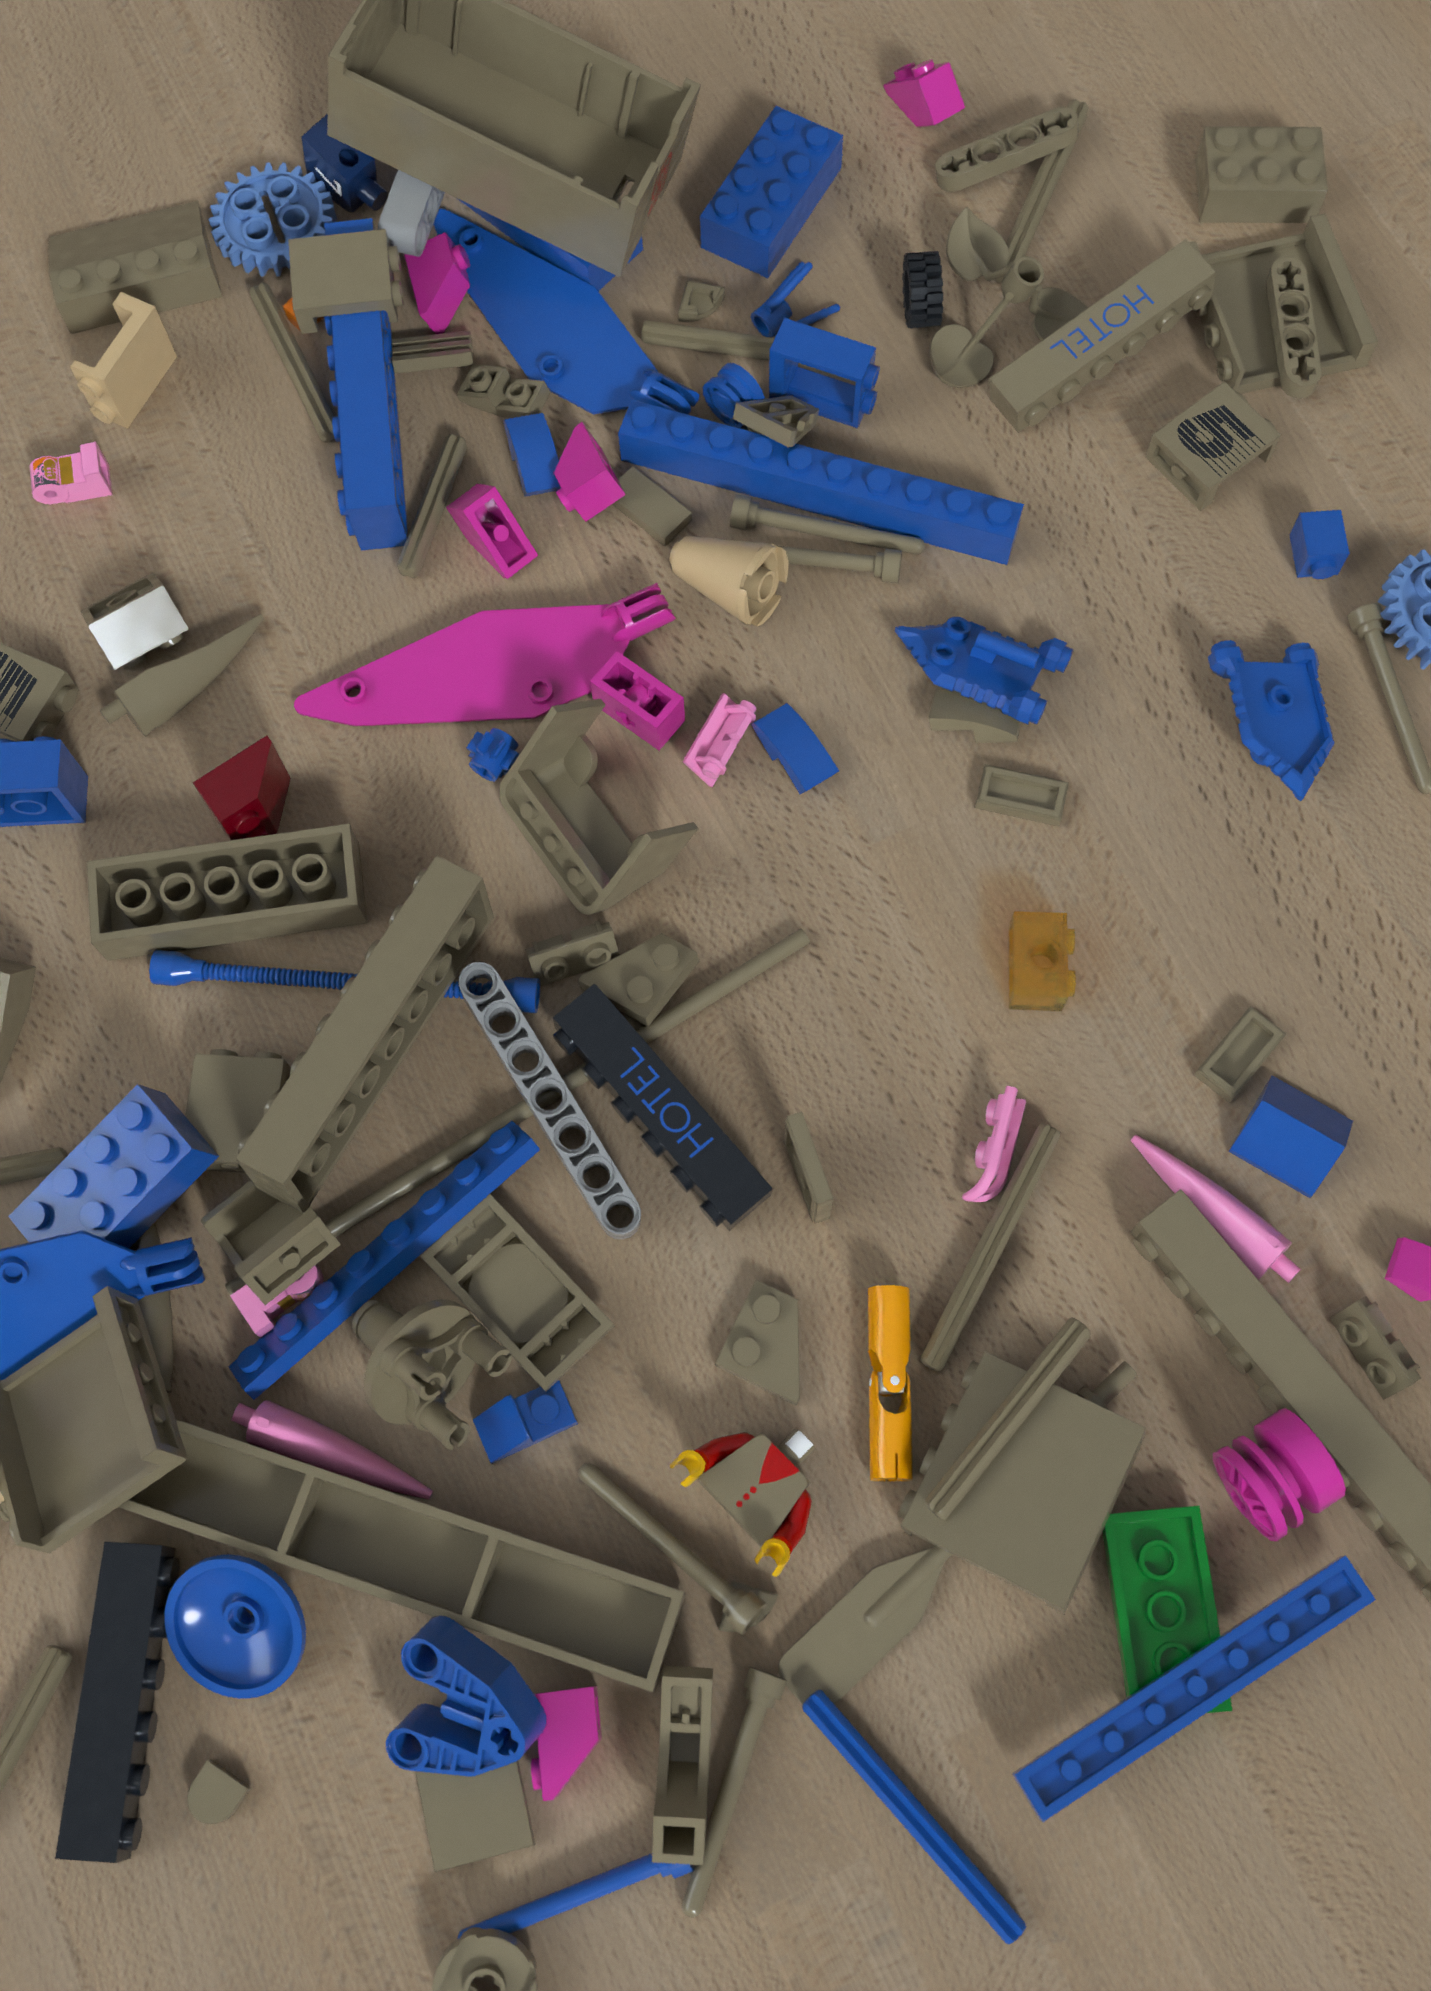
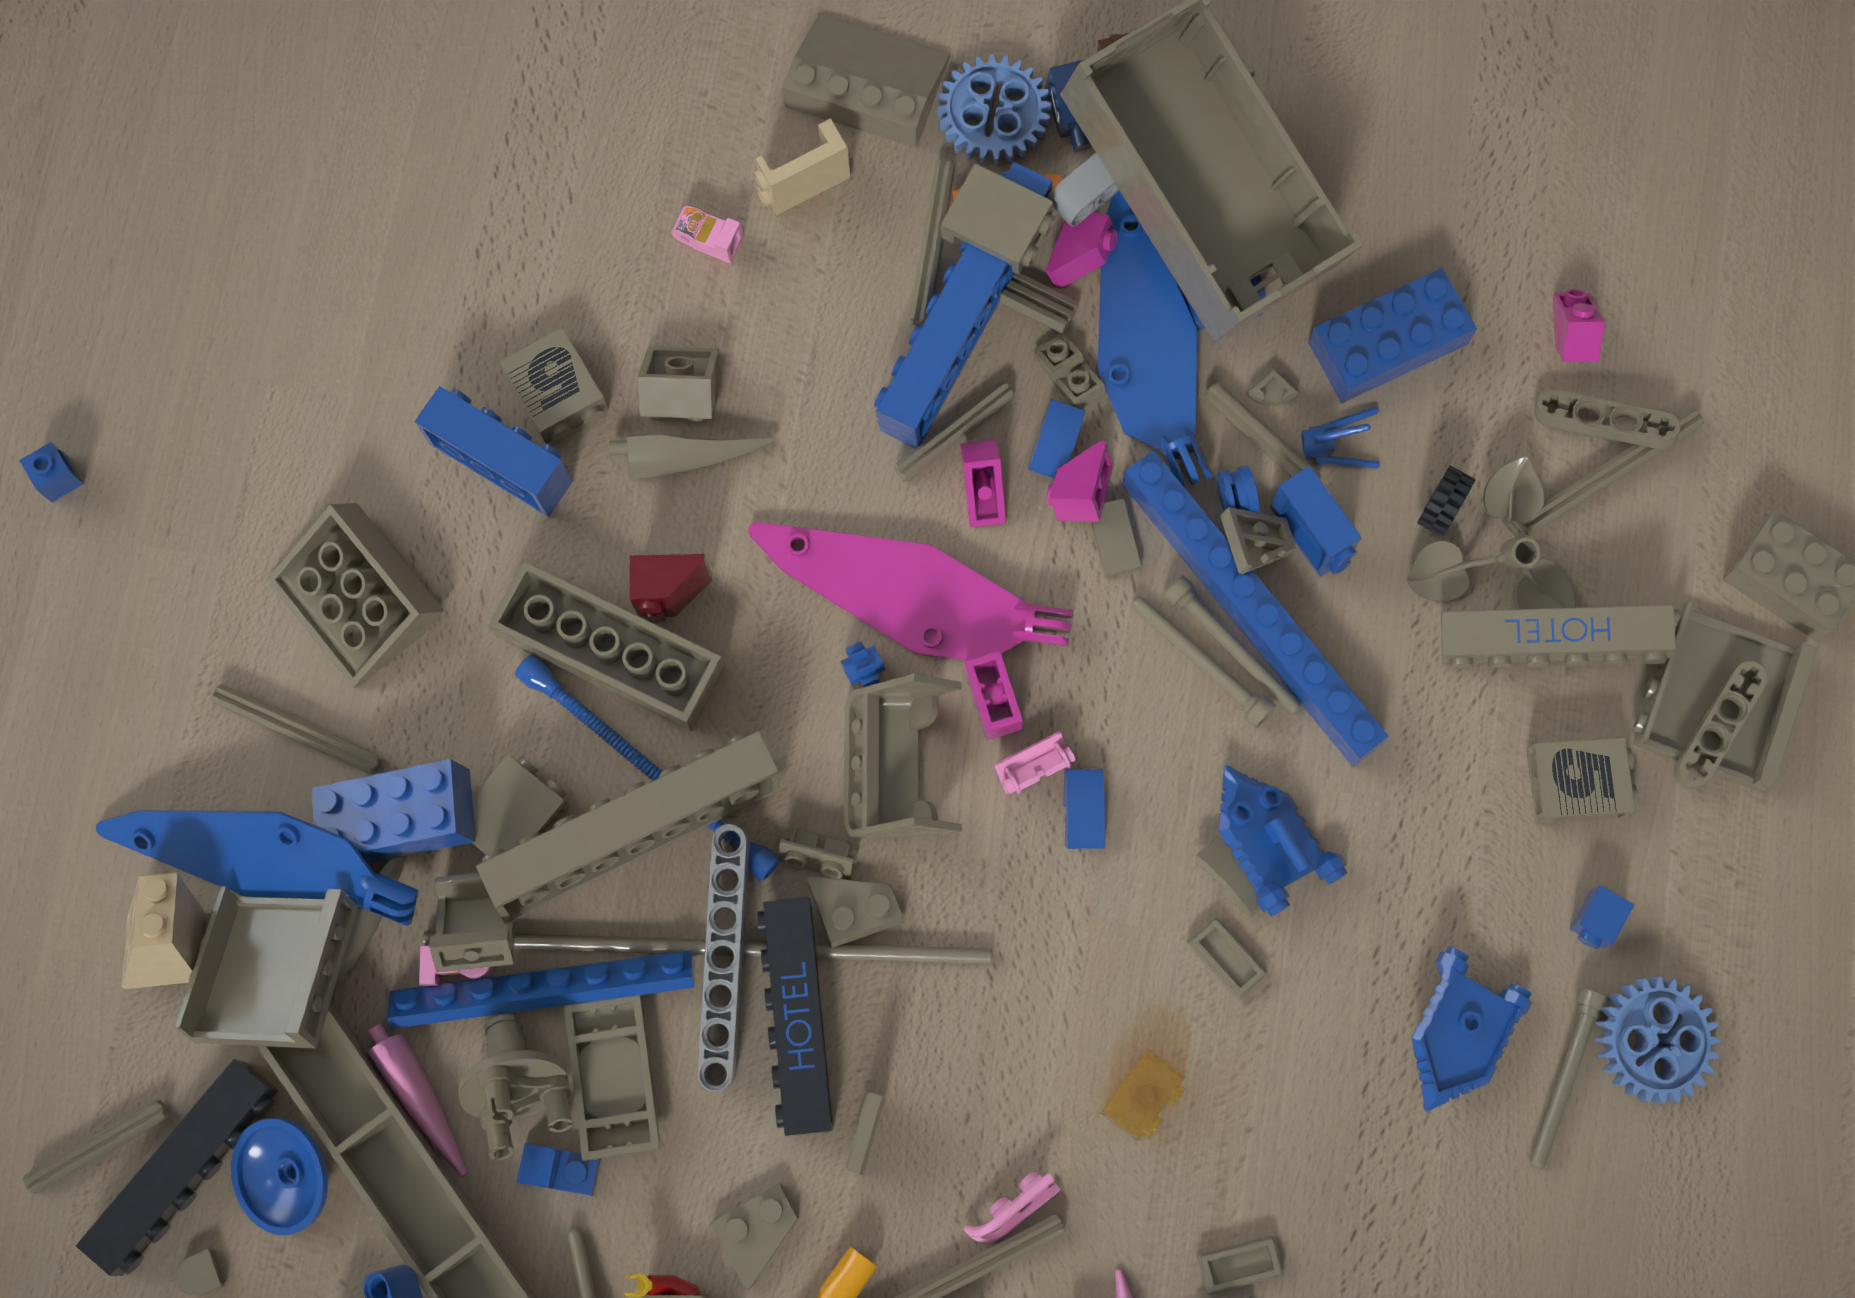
camera: 35 degrees right, 5 degrees up
(733, 574) = (1132, 641): tan cone -> none

